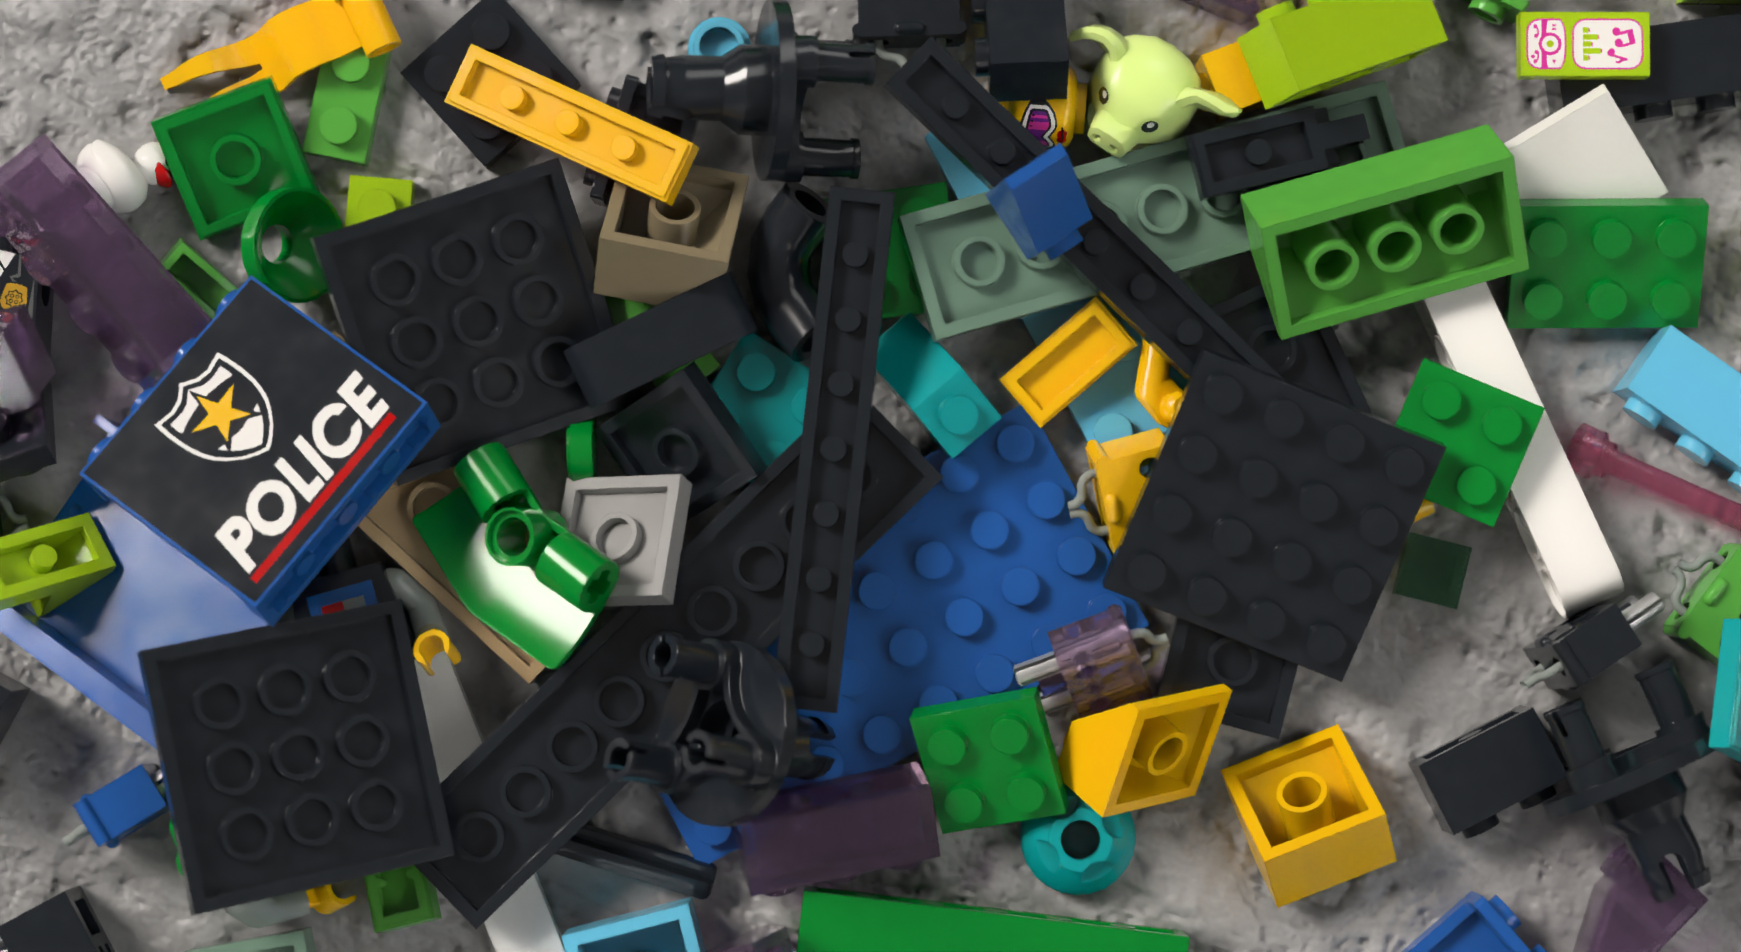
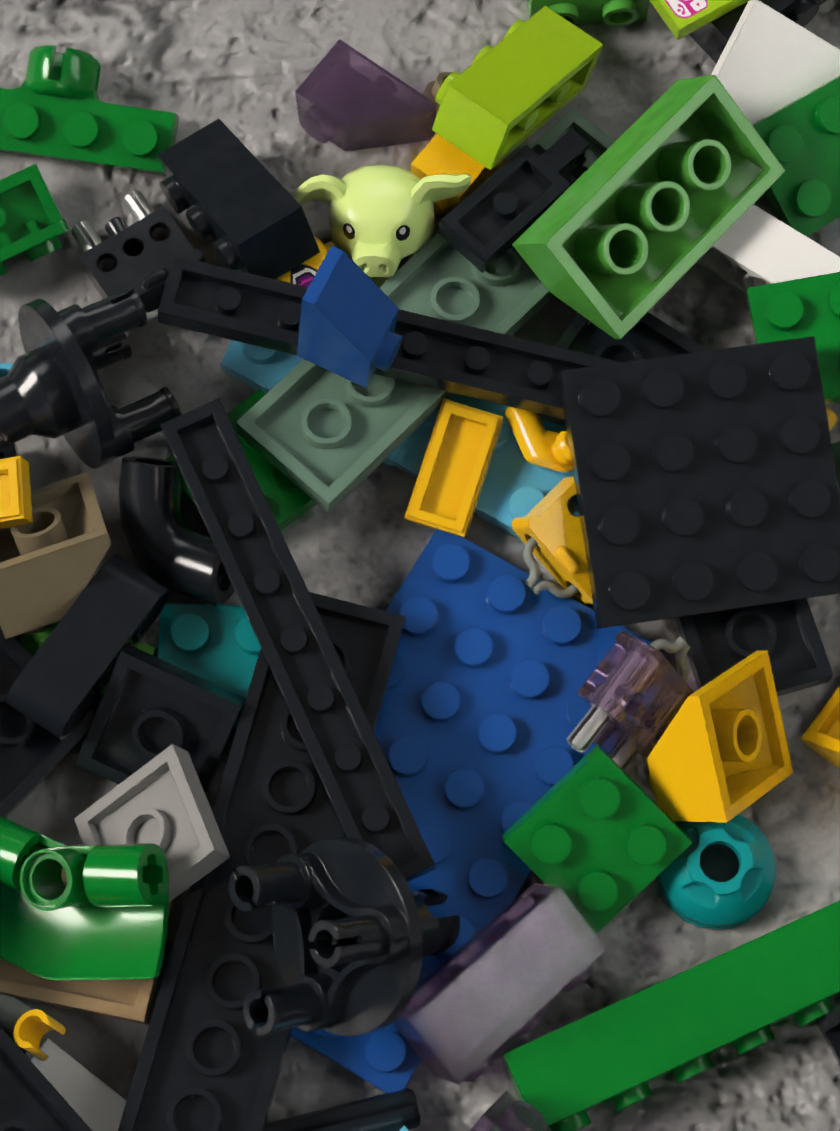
camera: 25 degrees left, 15 degrees down
(582, 450) = (72, 786): green tile -> none
(933, 386) = (353, 554): teal slope -> none

